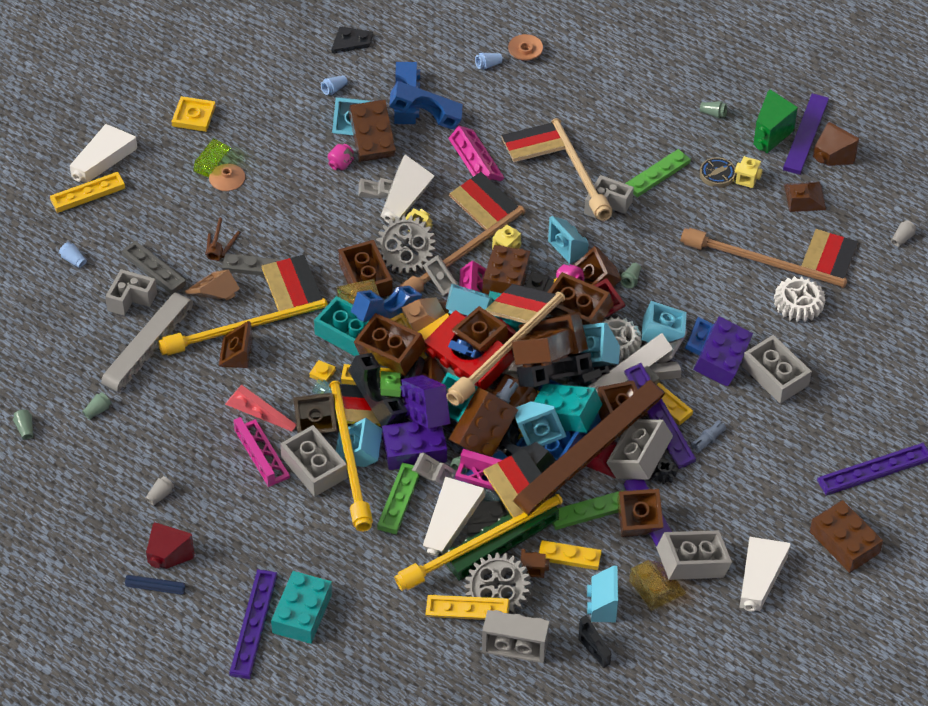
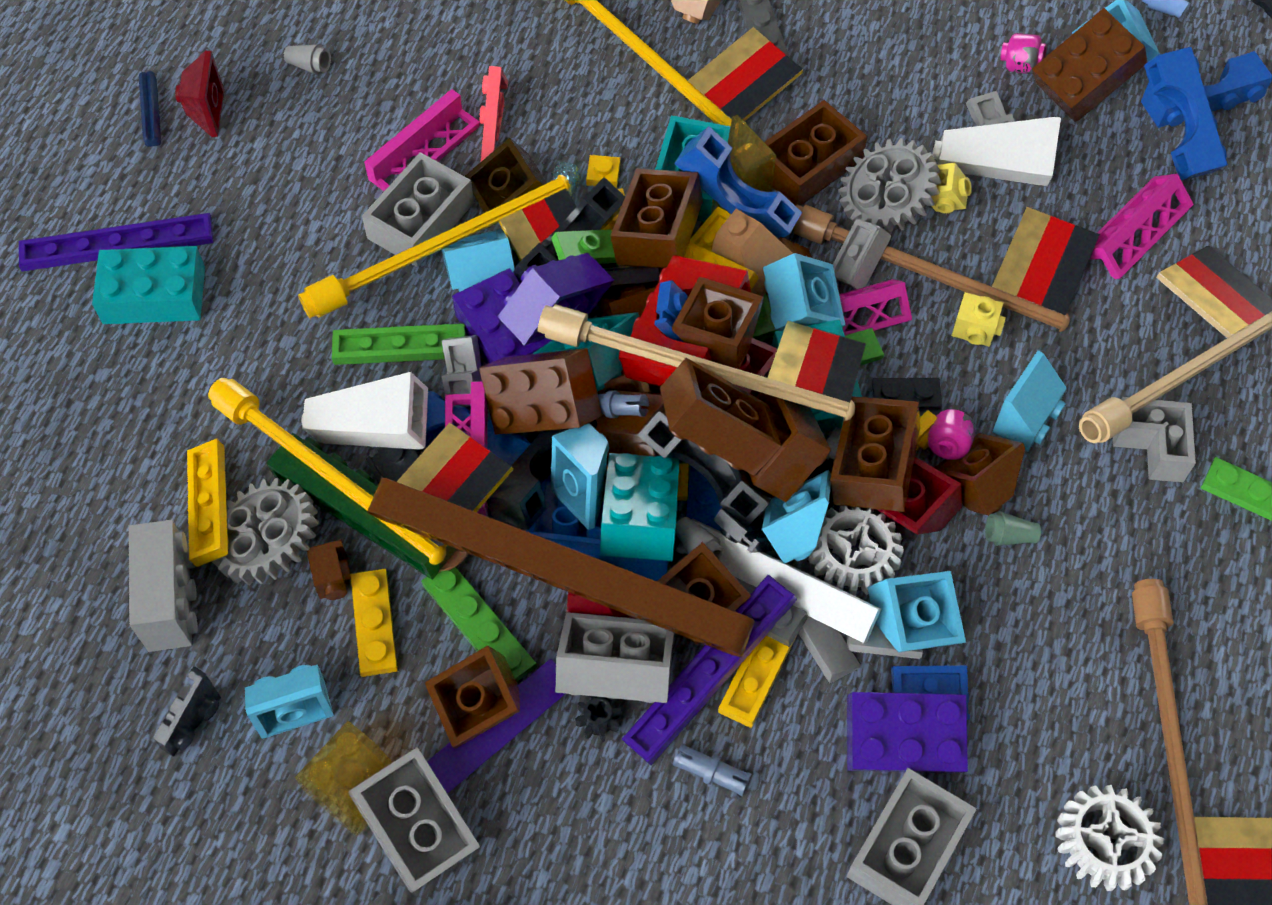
camera: 70 degrees right, 10 degrees up
(237, 347) = (598, 60): reddish brown slope -> none
(505, 268) = (906, 338): reddish brown brick -> none

